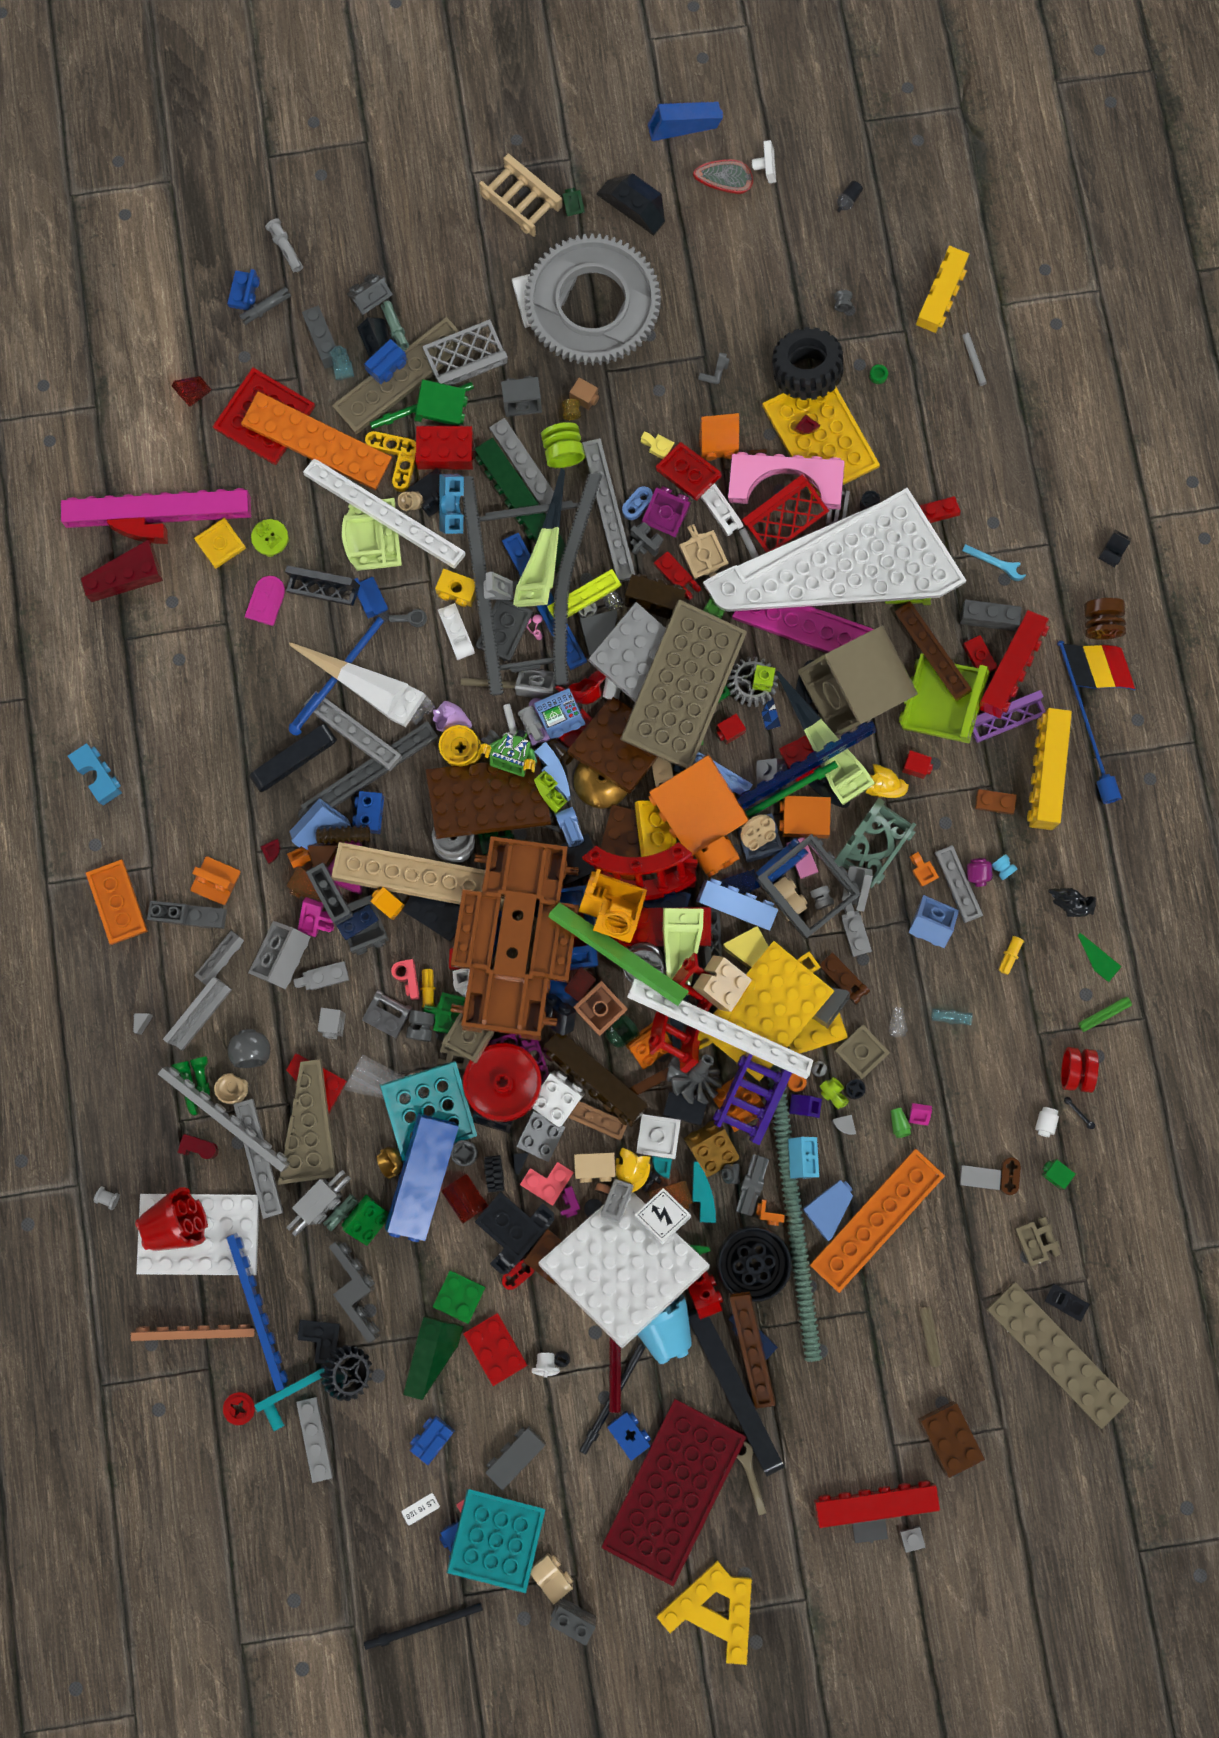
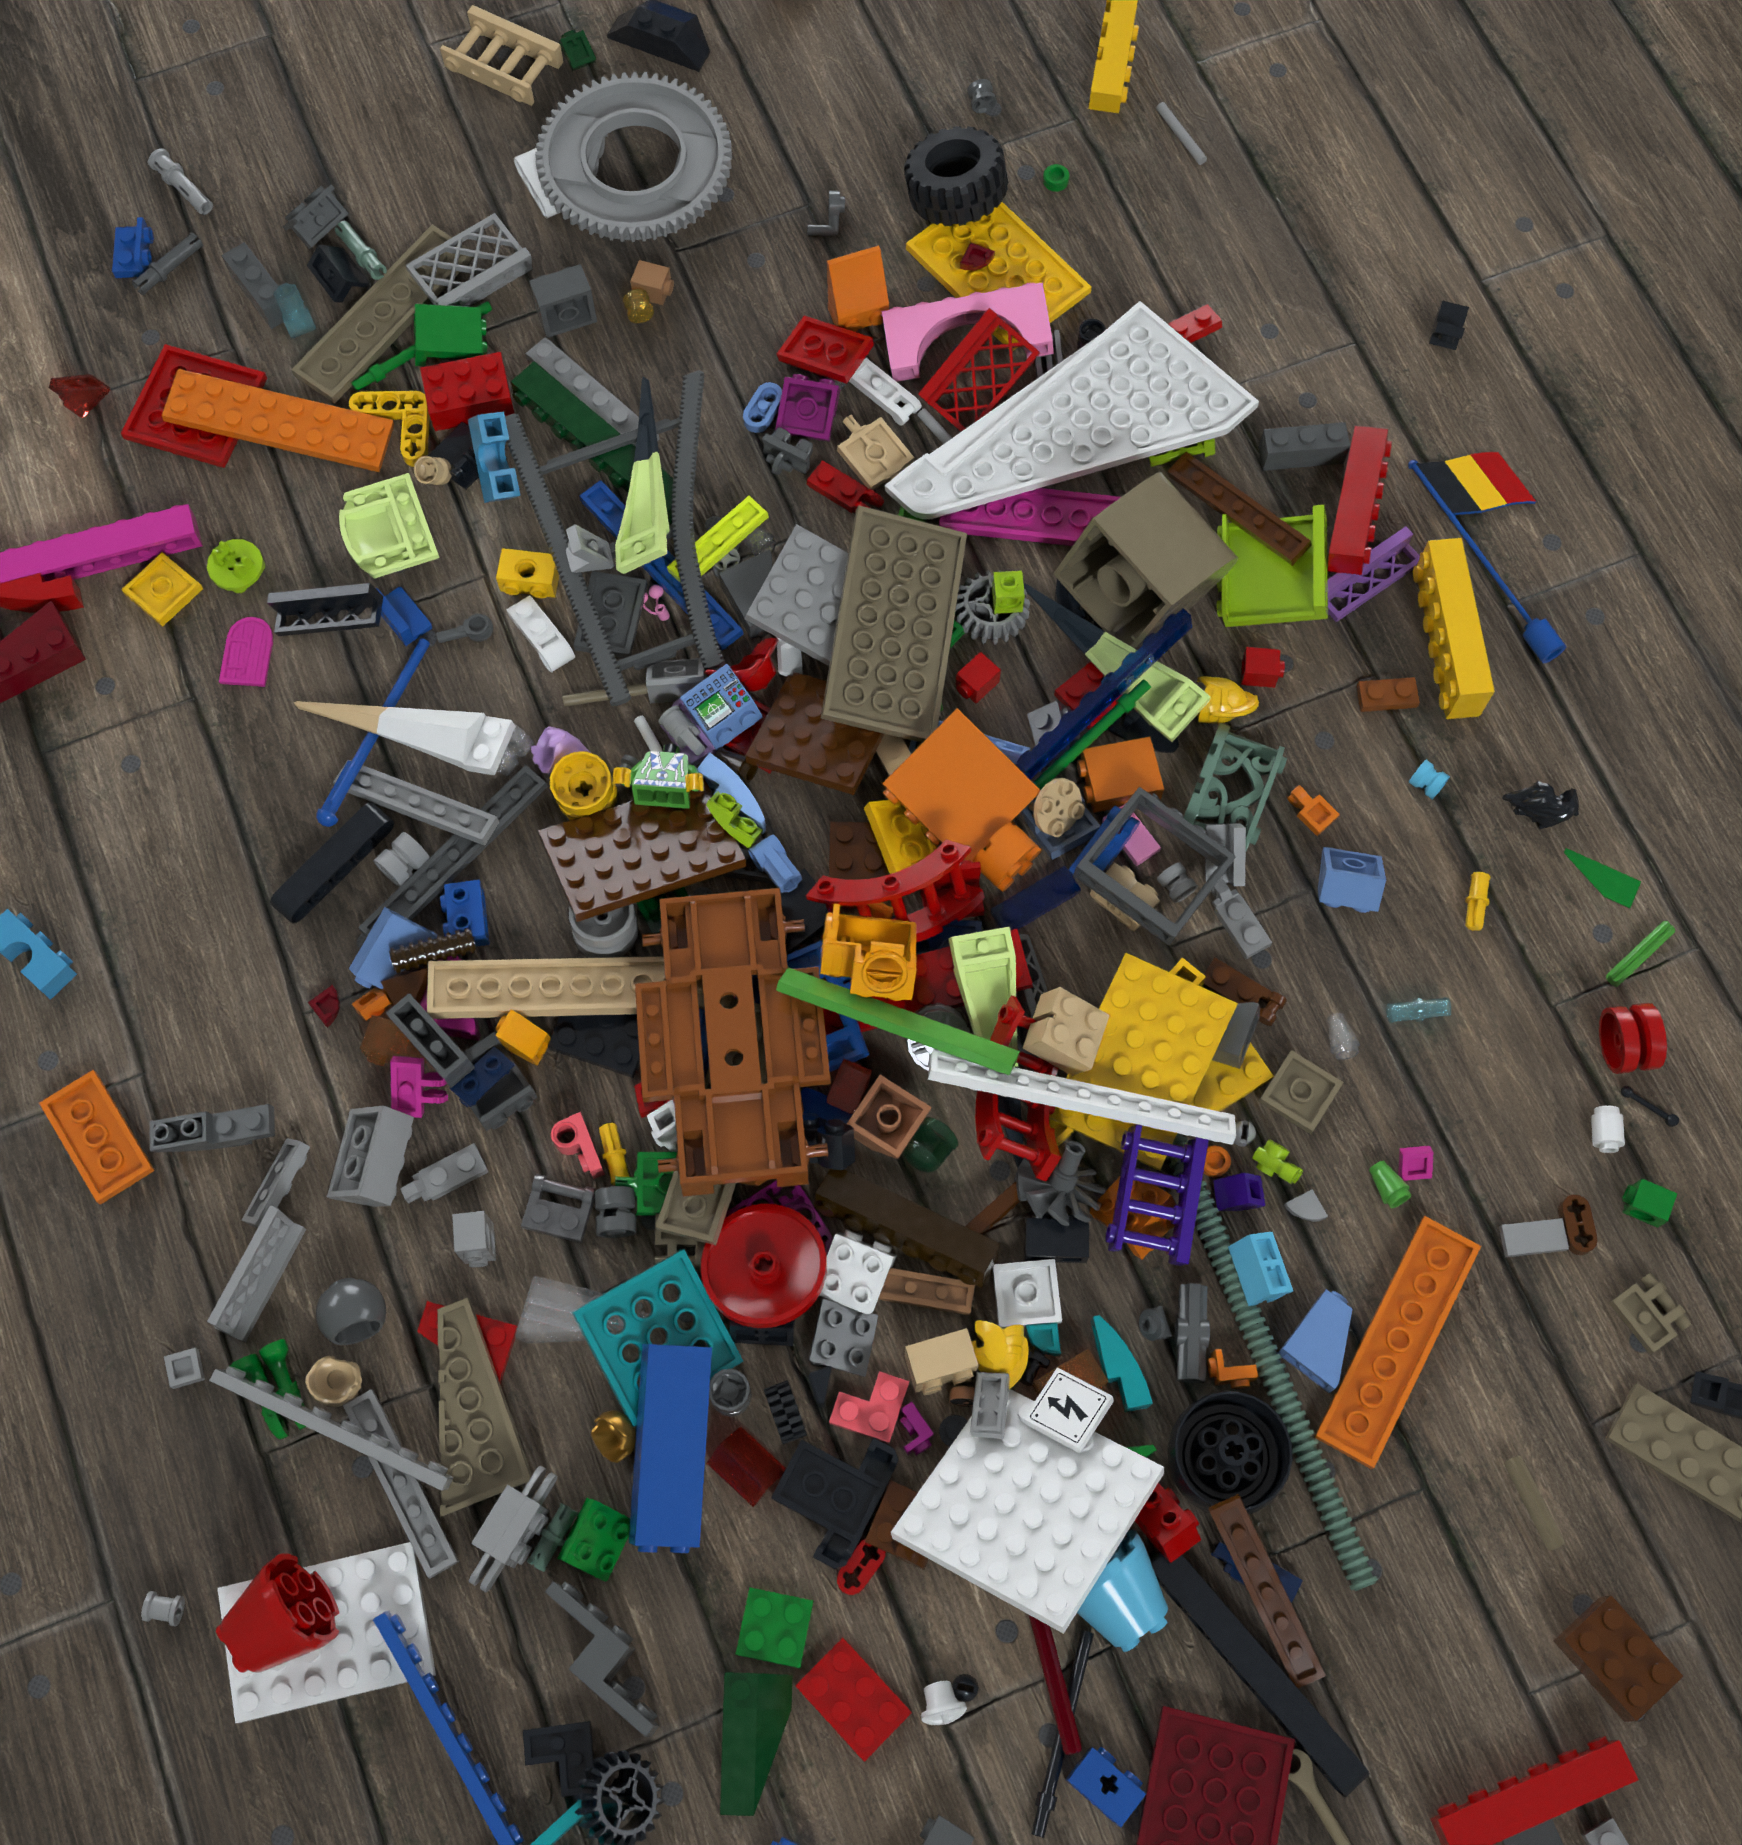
camera: 15 degrees left, 10 degrees down
(141, 1021) = (169, 1311): light grey slope -> none
(144, 1058) = (184, 1368): none -> light grey plate
(144, 1333) = (332, 1799): nougat wing -> none
(204, 1148) = (296, 1485): dark red leg -> none
(214, 880) = (246, 1069): orange bracket -> none
(336, 766) = (401, 859): none -> light grey wheel
(384, 513) = (399, 492): white plate -> none
(386, 362) = (357, 295): blue brick -> none
(562, 445) = (637, 350): lime wheel -> none
(594, 791) = (802, 808): pearl gold dish -> none
(609, 511) = (727, 428): light grey plate -> none
(640, 1048) = (970, 1167): orange bracket -> none
(653, 595) = (820, 513): dark brown brick -> none
(659, 447) = (774, 329): light yellow plate -> none
(711, 1148) = (1114, 1289): pearl gold bracket -> none
(737, 905) = (1056, 918): light blue brick -> none
(747, 947) = (1087, 975): light yellow slope -> none
(770, 715) = (1030, 650): sticker -> none
(858, 1089) = (1309, 1144): black wheel -> none
(958, 884) = (1370, 820): light grey tile -> none
(979, 653) = (1300, 499): red plate -> none
(979, 871) = (1395, 793): magenta head -> none
(1008, 567) = (1309, 382): medium azure piece -> none
(1105, 618) = (1466, 413): reddish brown wheel -> none

